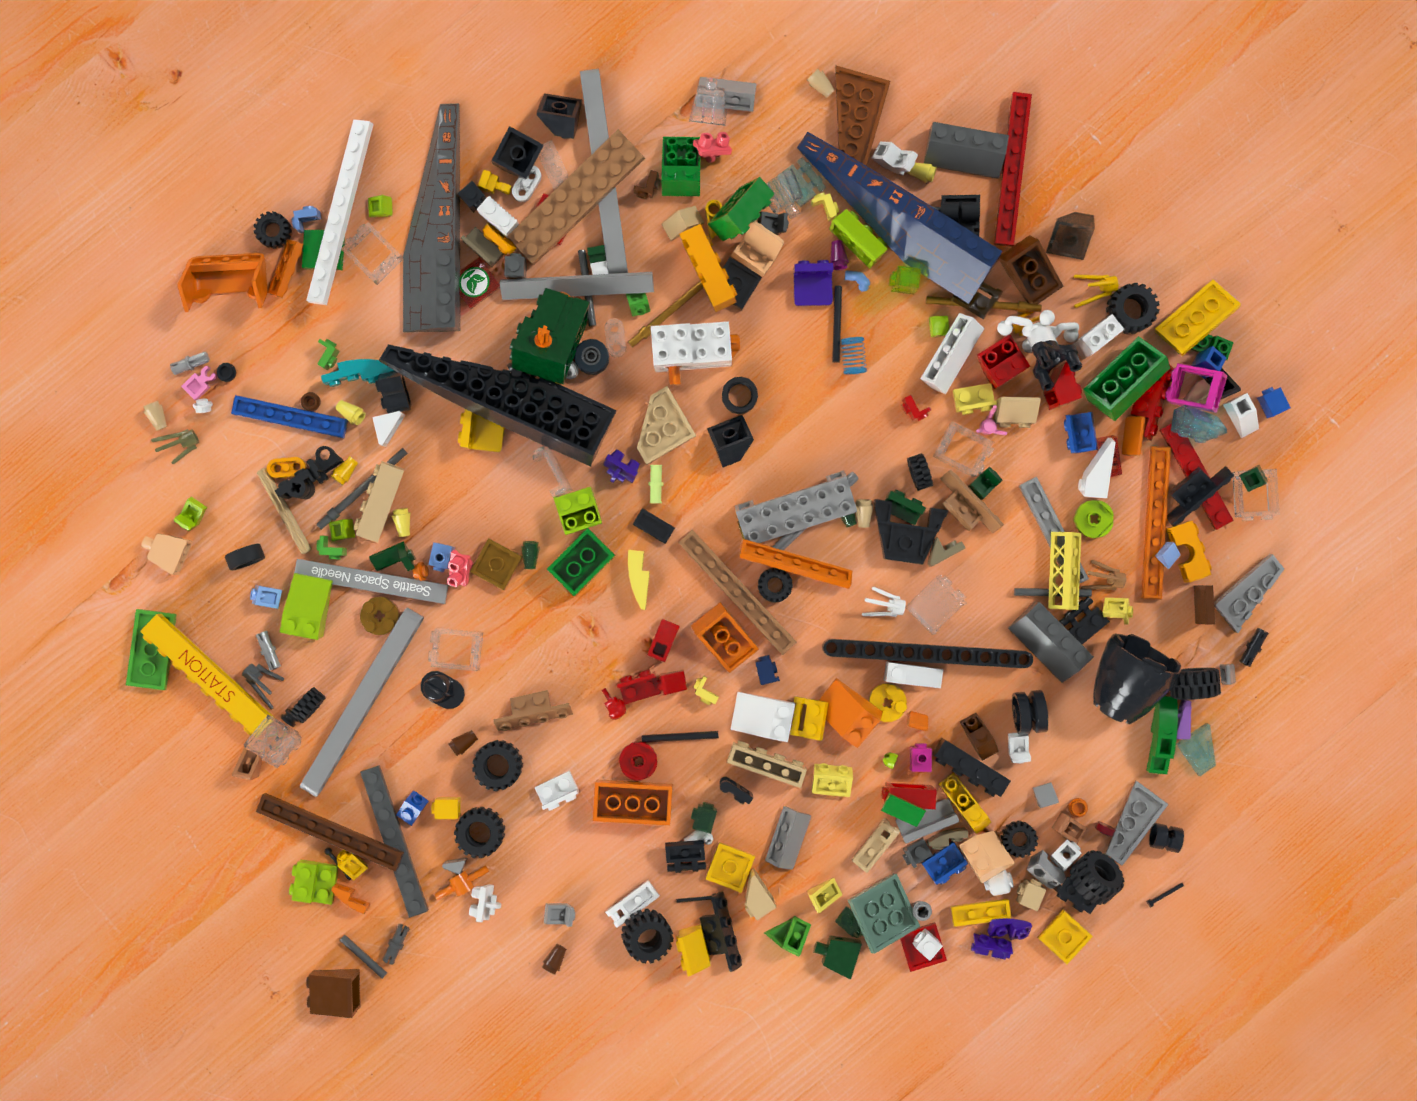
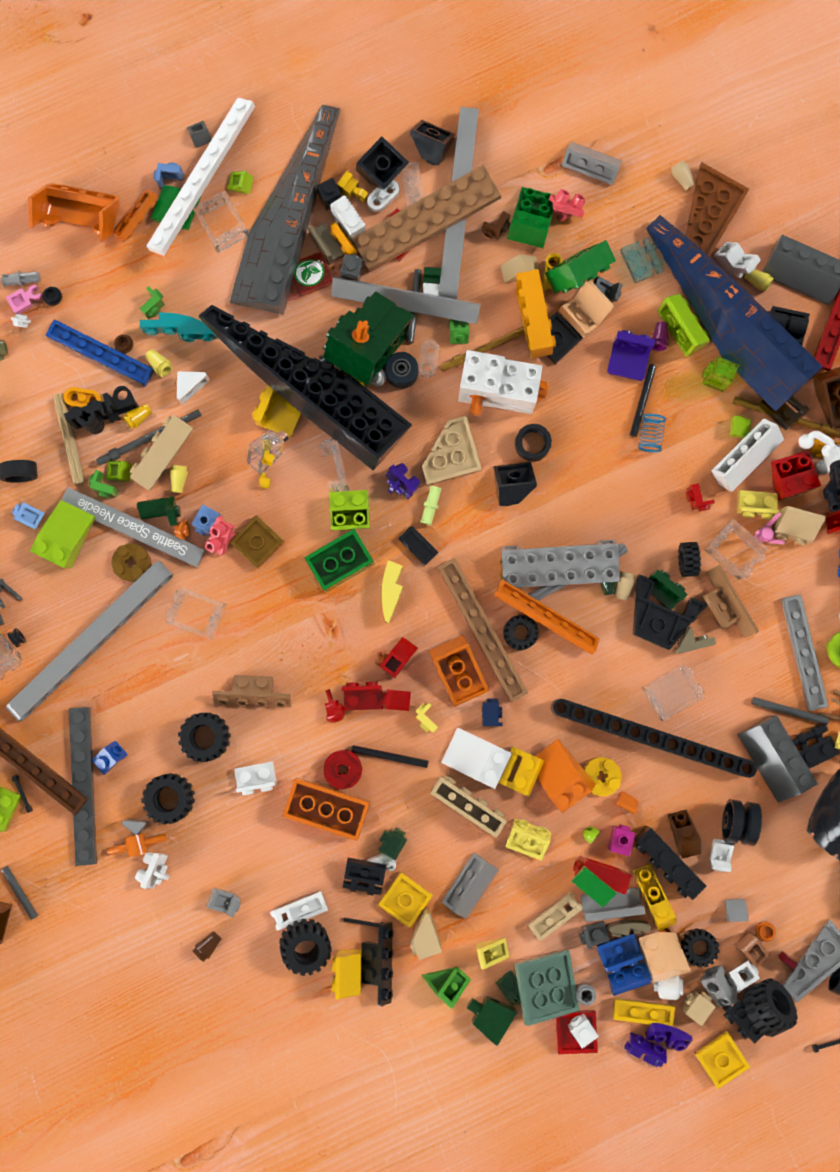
camera: 10 degrees right, 5 degrees down
(262, 224) = (134, 166): black tyre -> none
(268, 650) = (14, 567): light grey pin -> none
(308, 705) = (36, 629): black tyre -> none
(325, 167) = (199, 134): none -> dark grey slope
(345, 895) = (19, 827): orange slope -> none
(351, 864) = (33, 797): yellow bracket -> none
(394, 392) = (205, 353): black brick -> none
(396, 944) = (55, 888): dark grey pin -> none
(442, 690) = (171, 650): black piece -> none
(446, 807) = (143, 766): yellow brick -> none
(463, 742) = (176, 706): reddish brown cone -> none
(480, 474) = (265, 452): none -> clear torso
(530, 554) = (292, 541): clear green cone -> none
(709, 104) = (574, 165): clear torso -> none
(741, 794) = (434, 828): black plate -> none
(786, 193) = (626, 265): clear torso -> none
(830, 207) = (663, 288): light yellow bracket -> none
(860, 278) = (675, 362): medium blue arm -> none
(895, 606) = (632, 682): white plant -> none
(913, 675) = (633, 755): white slope -> none
(959, 885) = (629, 979): none -> blue bracket
(985, 483) = (750, 587): dark green bracket -> none
(1071, 572) = (814, 694): light yellow fence -> none

